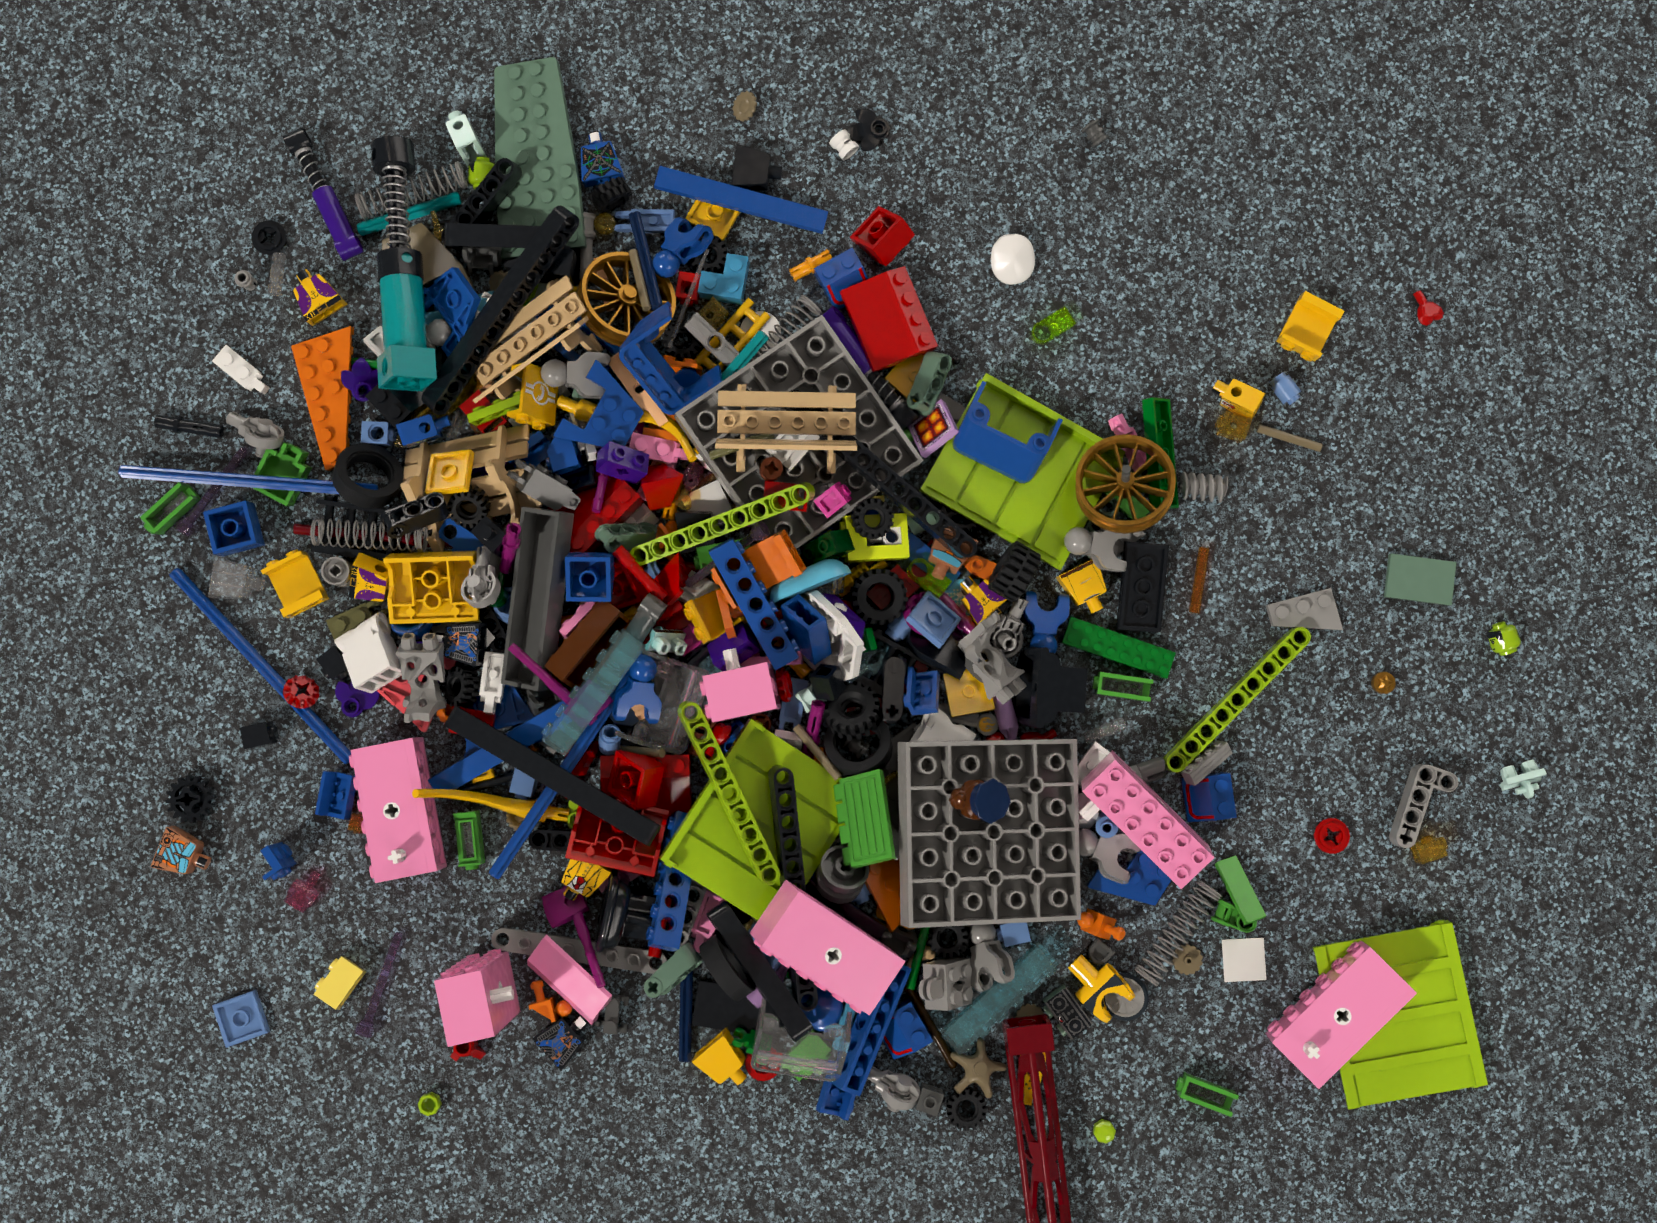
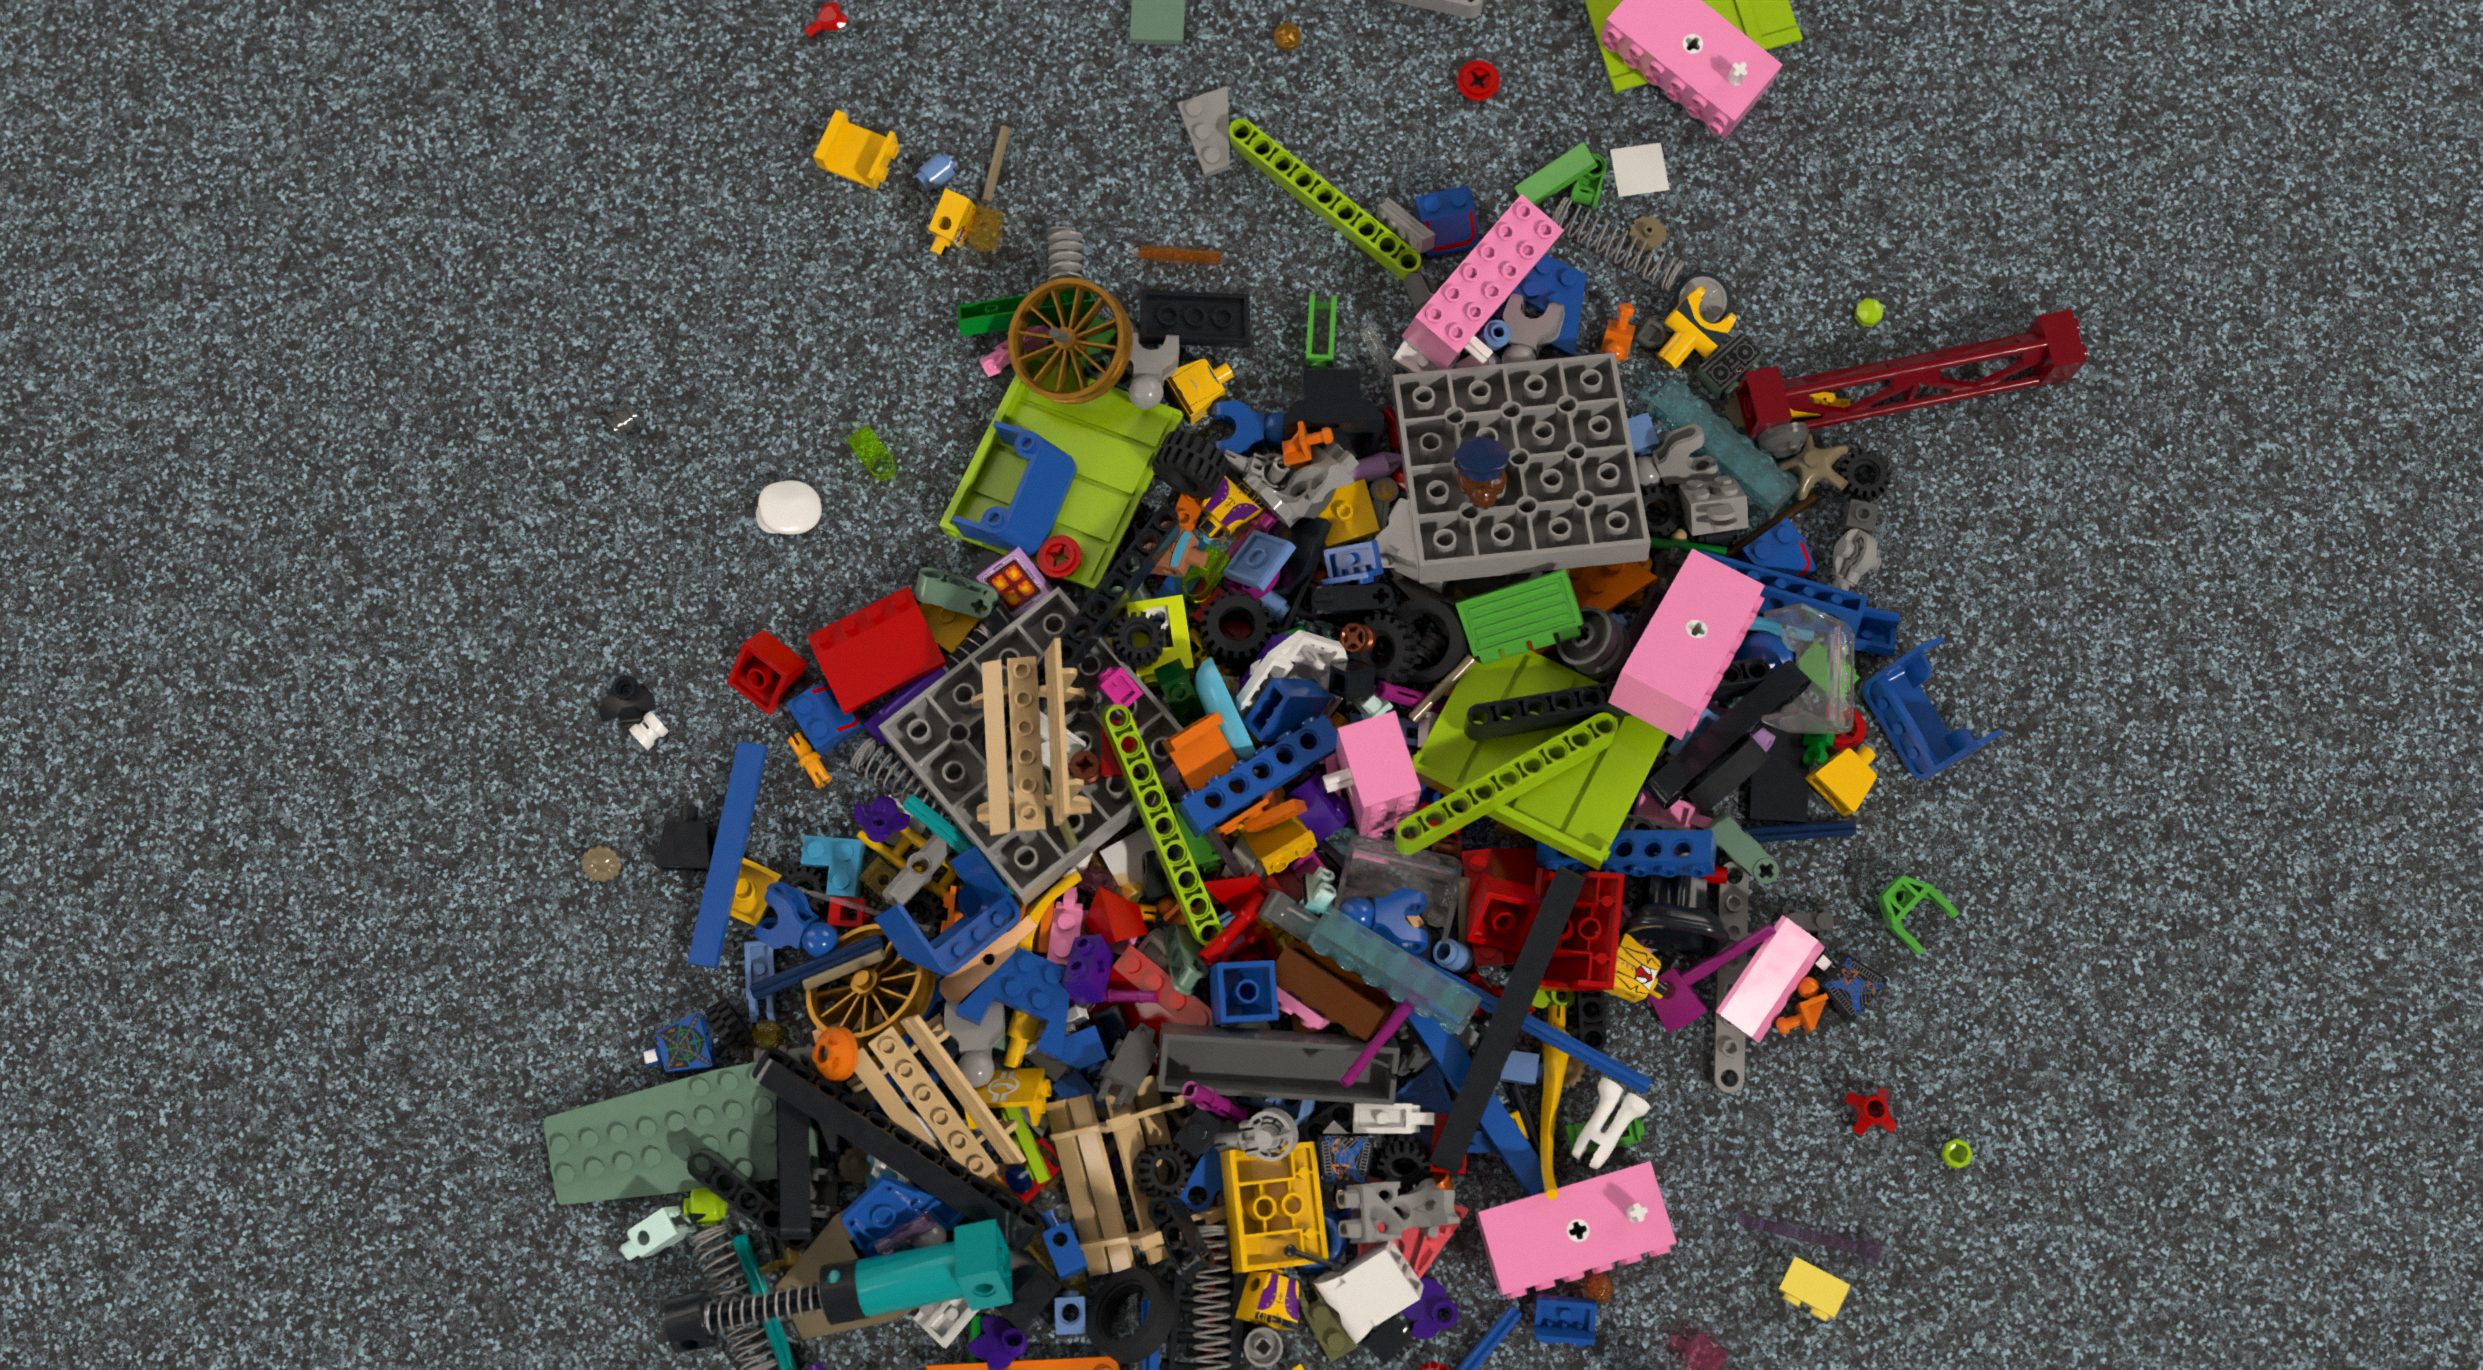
camera: 95 degrees left, 10 degrees down
(396, 595) = (1290, 1250): none -> black hinge
(438, 313) = (905, 1234): none -> clear purple pin
(450, 472) = (1118, 1197): yellow plate -> none
(457, 840) = (1610, 1096): none -> white piece
(469, 403) = (1018, 1179): none -> clear blue tile
(477, 997) = (1807, 1076): bright pink piece -> none
(571, 268) = (841, 1056): none -> orange piece
(624, 1097) = (1911, 893): none -> bright green piece
(761, 316) = (880, 818): none -> dark purple plate
(761, 1120) = (1911, 718): none -> blue windscreen
(862, 684) = (1350, 638): none -> copper wheel
(958, 461) = (1055, 546): none -> red gear
(997, 1047) = (1783, 439): none -> dark grey piece
(1019, 657) = (1298, 449): none -> orange piece
(1118, 647) = (1273, 343): green piece -> none
(1205, 1093) = (1806, 198): bright green window -> none

